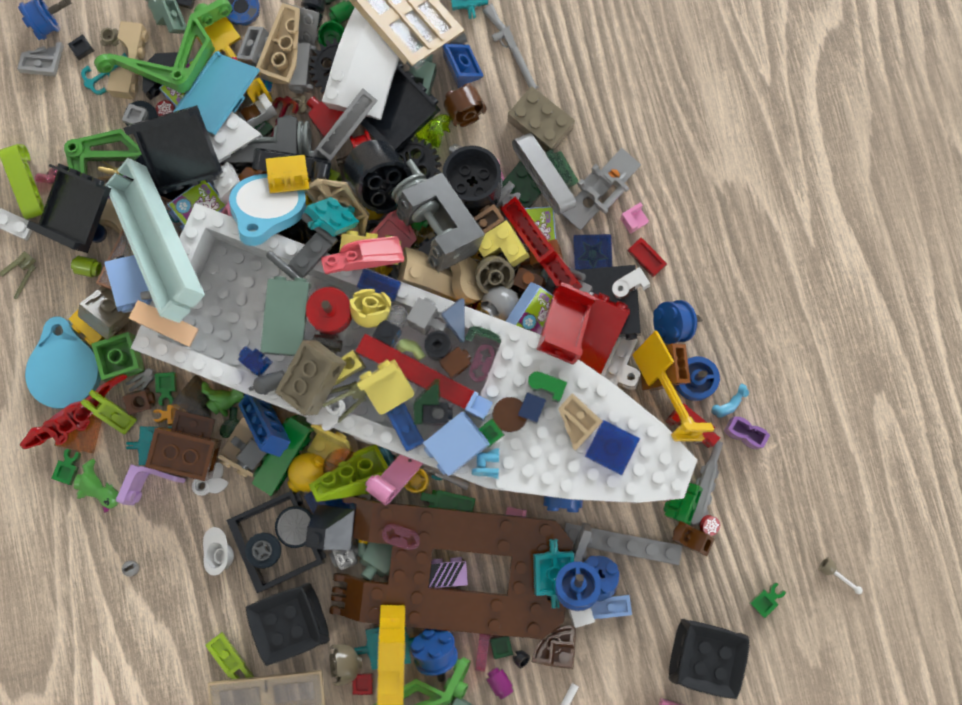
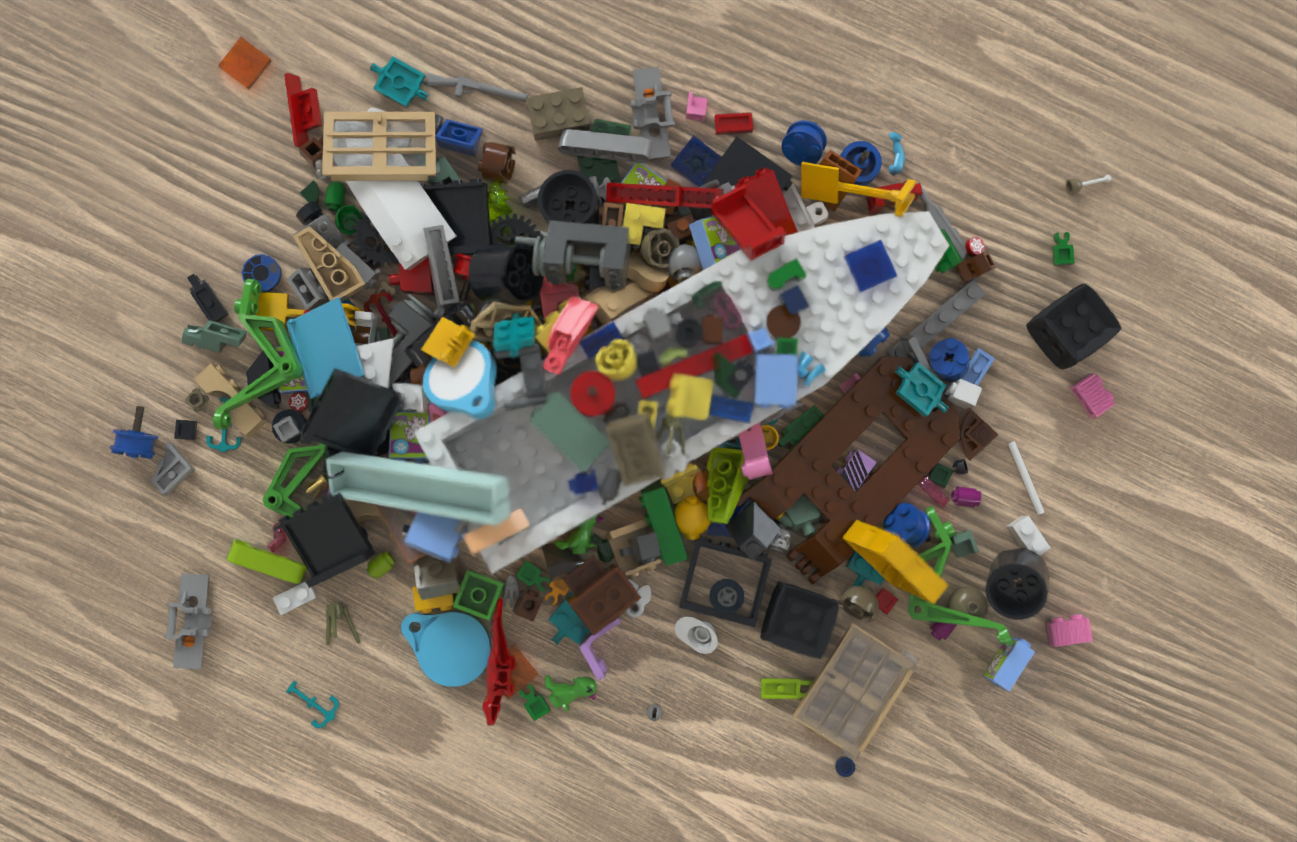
camera: 60 degrees left, 5 degrees up
(110, 413) = (520, 634): lime hinge -> none
(264, 425) = (632, 519): blue brick -> none
(292, 526) = (727, 558): light grey wheel -> none
(398, 541) = (807, 484): clear pink beam -> none
(455, 319) = (677, 303): sand blue piece -> none
(578, 420) = (830, 273): tan wing -> none
(578, 586) = (948, 378): blue wheel -> none
(630, 282) = (748, 160): white leg -> none
(751, 436) = (930, 161): medium lavender brick -> none

